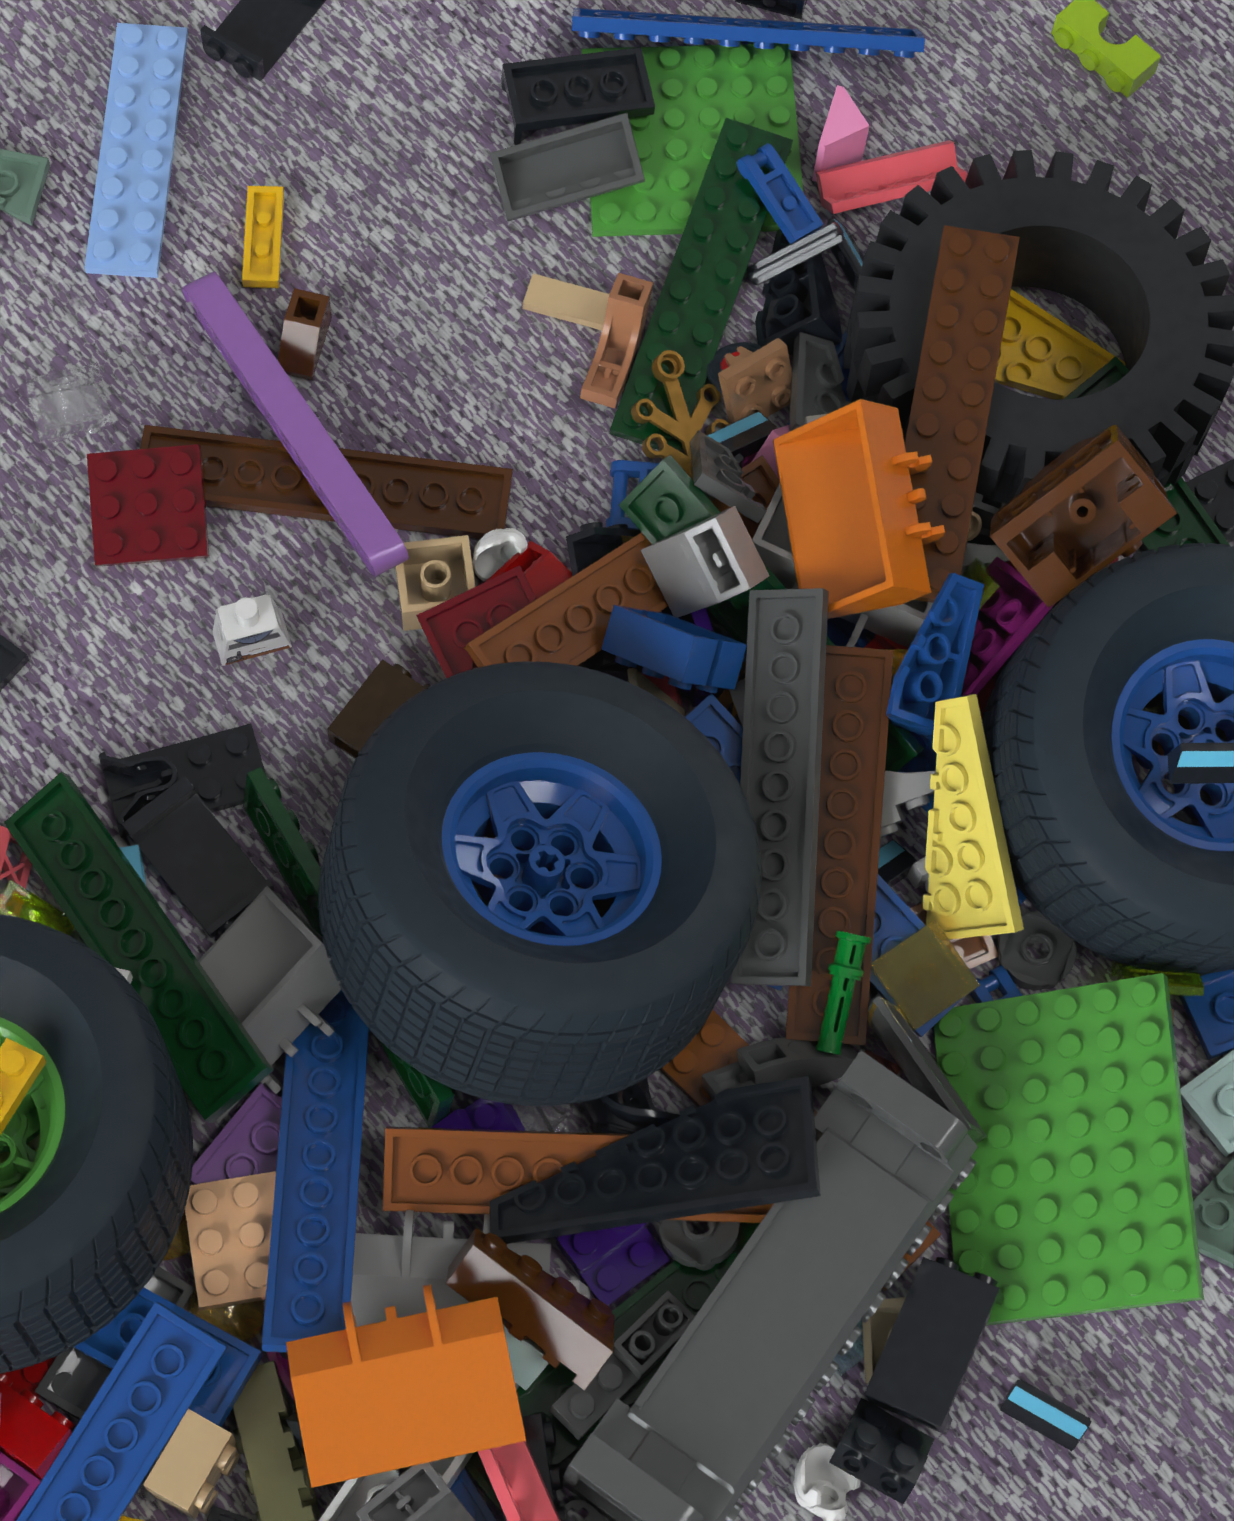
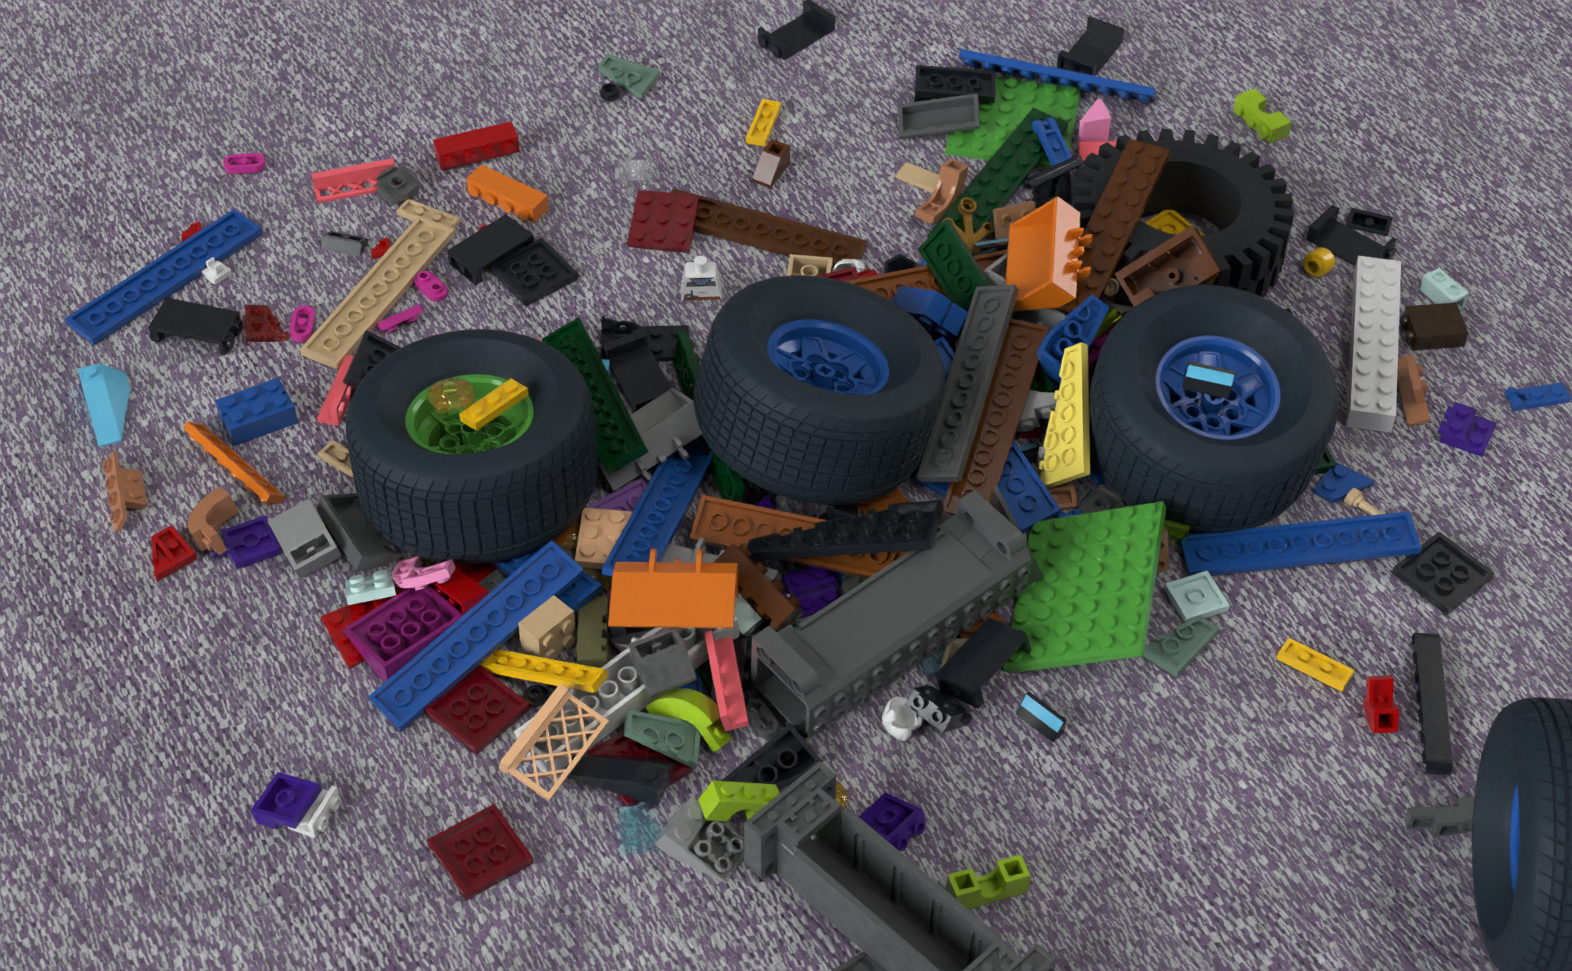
camera: 20 degrees right, 20 degrees down
(136, 151) = (707, 77): light blue plate -> none
(296, 425) = (754, 197): medium lavender beam -> none
(705, 563) = (957, 270): light grey slope -> none
(719, 476) = (979, 244): dark grey wing -> none
(845, 972) = (984, 476): green pin -> none
(924, 975) = (1029, 496): clear yellow plate -> none

